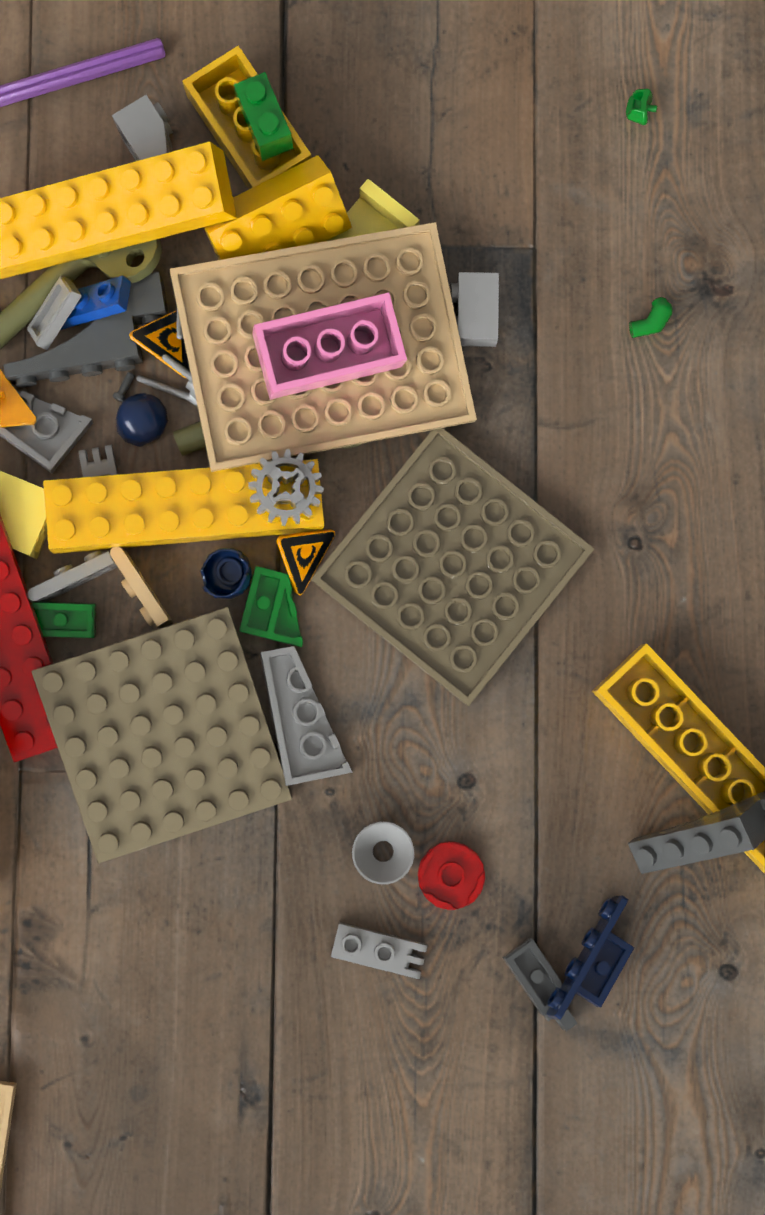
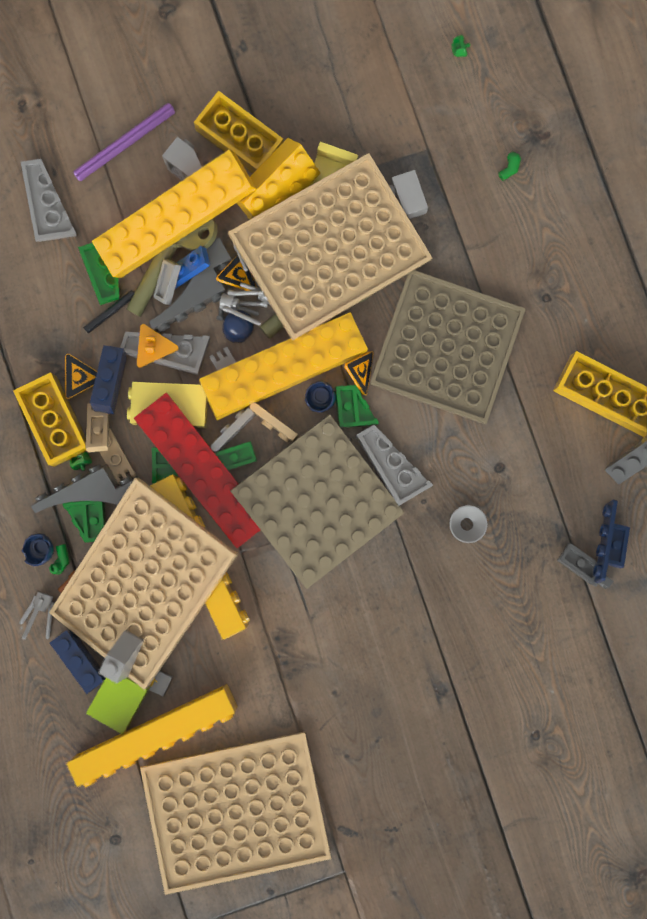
camera: 20 degrees left, 0 degrees up
(139, 379) = (230, 304): none -> light grey plant
(263, 116) = (250, 126): green brick -> none
(275, 475) = (333, 329): light grey gear -> none
(329, 345) = (336, 243): bright pink brick -> none
(377, 950) = (483, 581): light grey hinge -> none
(451, 875) = (510, 524): red tile -> none

